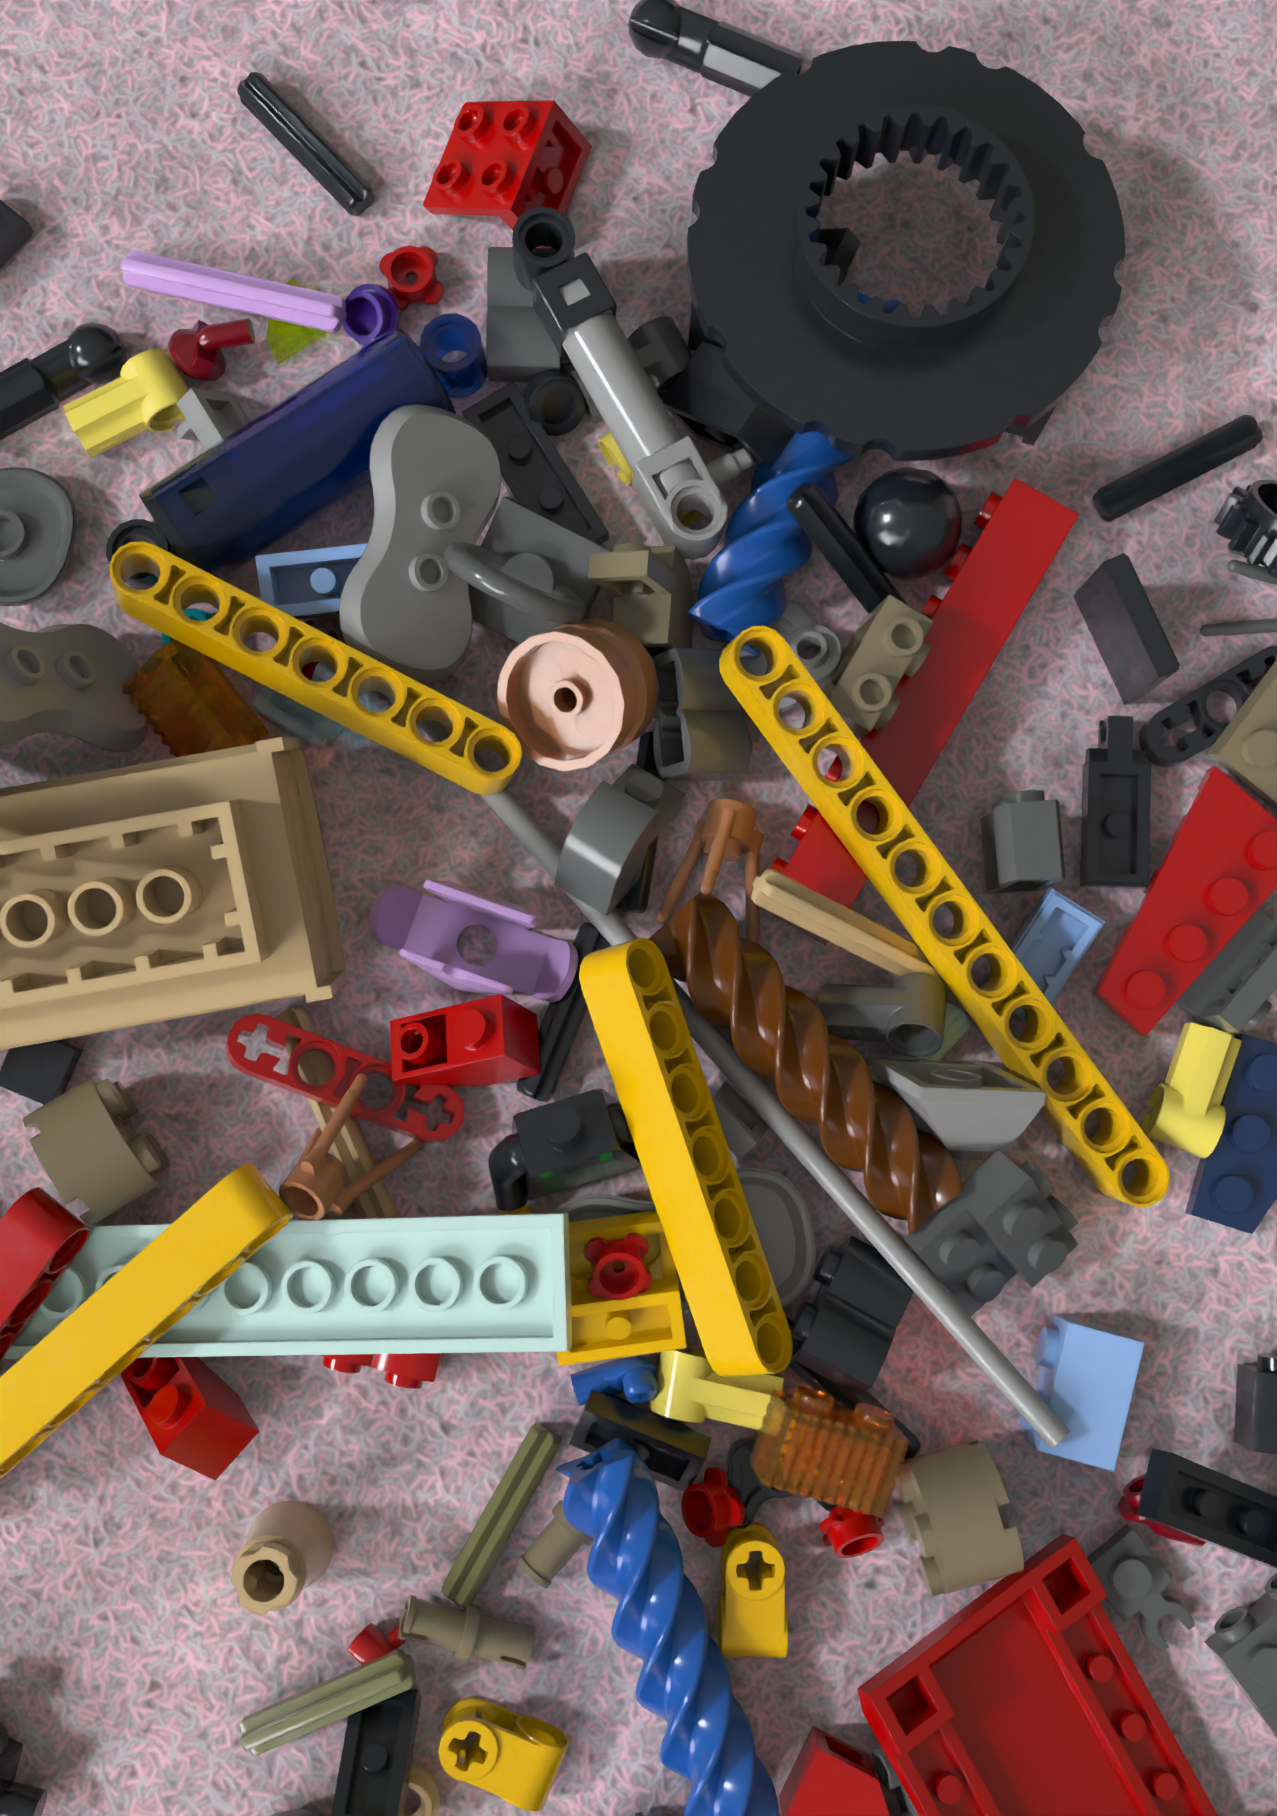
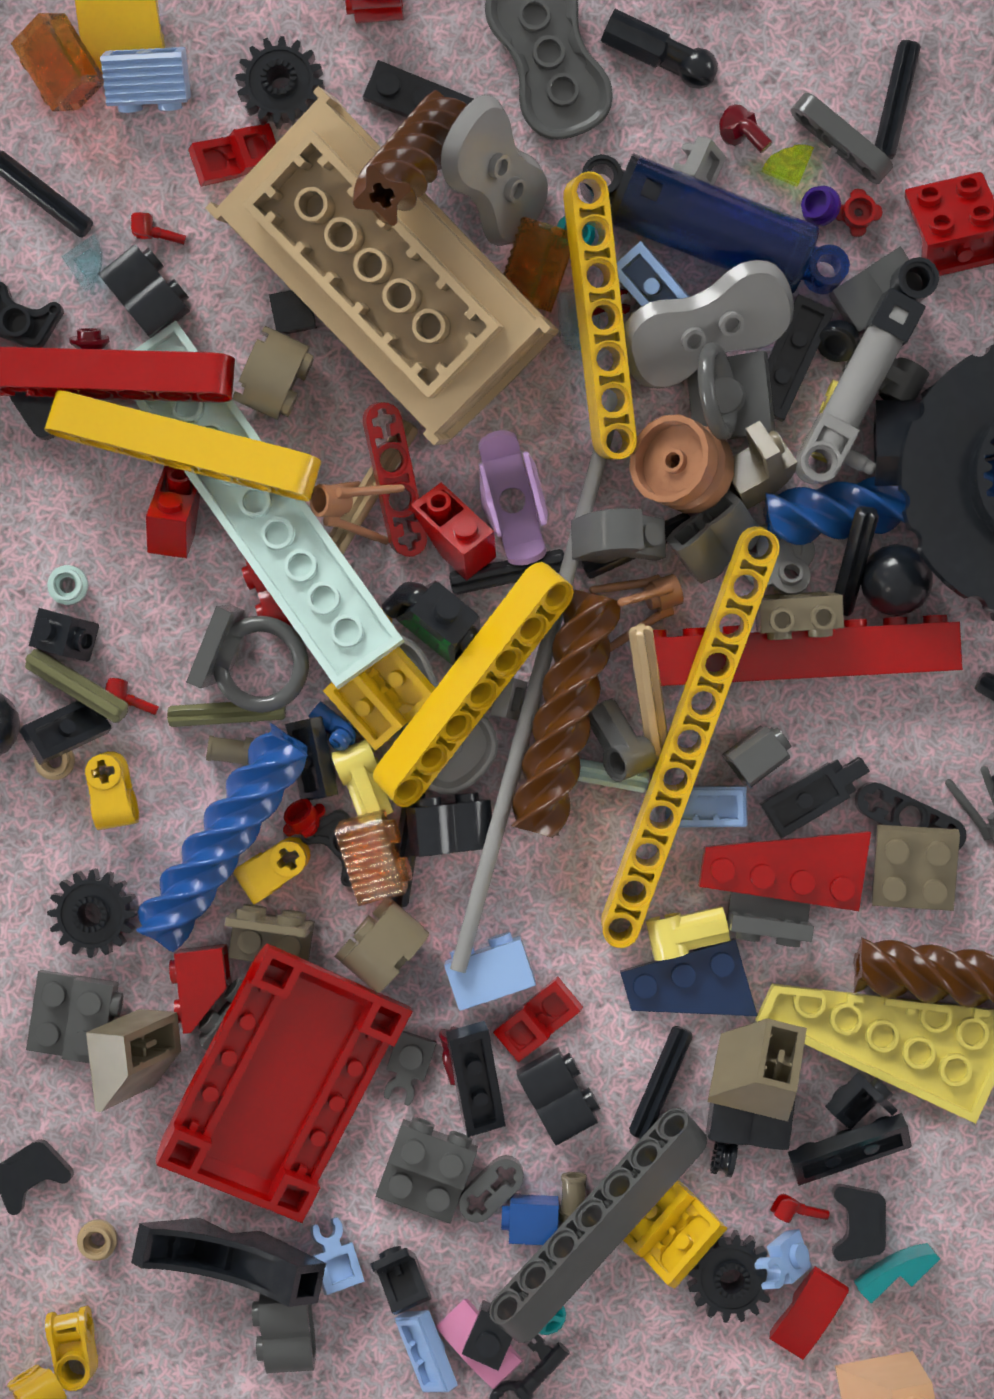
camera: 60 degrees right, 5 degrees up
(131, 404) = (689, 112): light yellow piece -> none
(172, 1631) = (55, 585): none -> light aqua plate
(234, 291) = (783, 121): lavender axle -> none
(249, 1670) = (64, 635): none -> black bracket
(294, 1539) = (147, 614): tan plant -> none
(307, 232) = (838, 133): none -> dark grey beam
(409, 1467) = (222, 647): none -> dark grey tile
(466, 1632) = (157, 733): dark tan pin -> none
(618, 1283) = (383, 686): red plate -> none
(847, 1650) = (255, 928): none -> dark tan bracket
(851, 1532) = (339, 898): red plate -> none
(963, 1103) = (597, 810): light grey slope -> none
(995, 1231) = (541, 872): dark grey plate -> none
(1126, 629) = (913, 735): black tile -> none
(1183, 1367) = (538, 1019): none -> red slope

